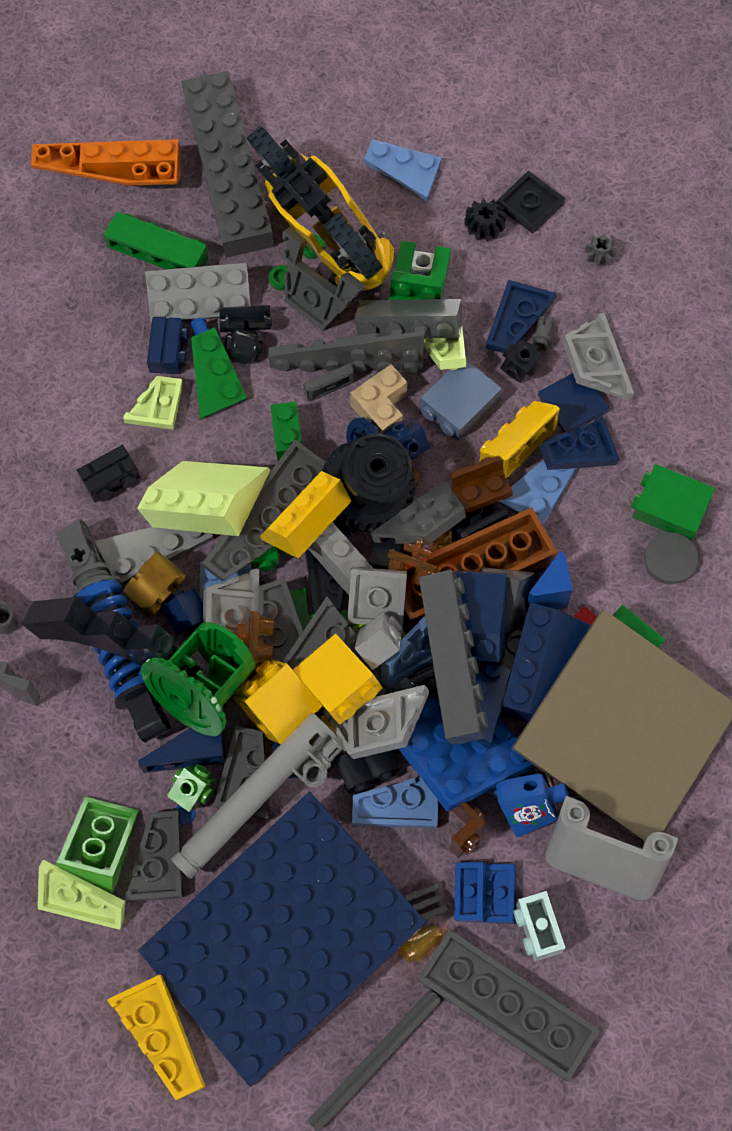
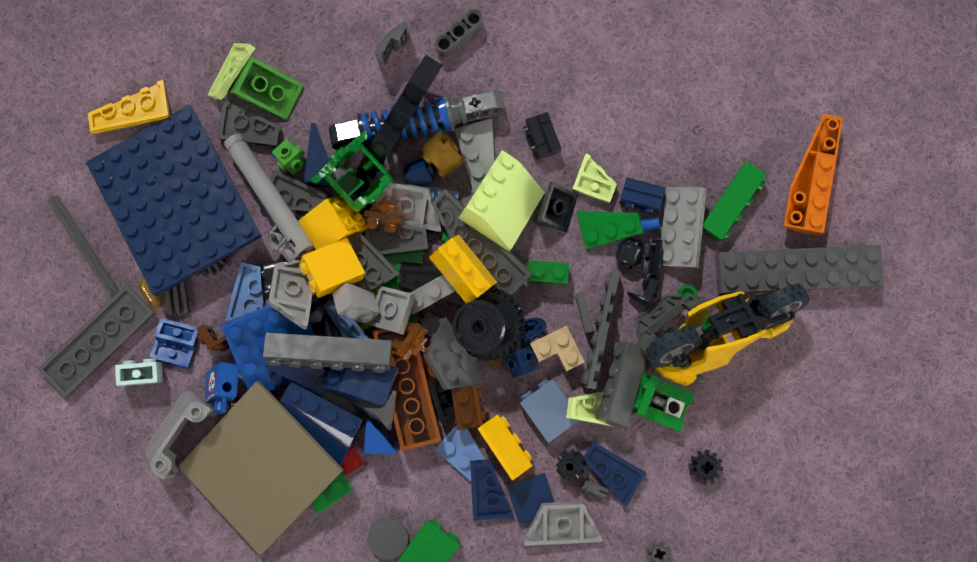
camera: 100 degrees right, 15 degrees up
(199, 442) = (557, 207): none -> black slope
(289, 316) = (650, 291): none -> black plate
(408, 167) = (770, 414): medium blue wing -> none
(530, 202) = (717, 508): black tile -> none

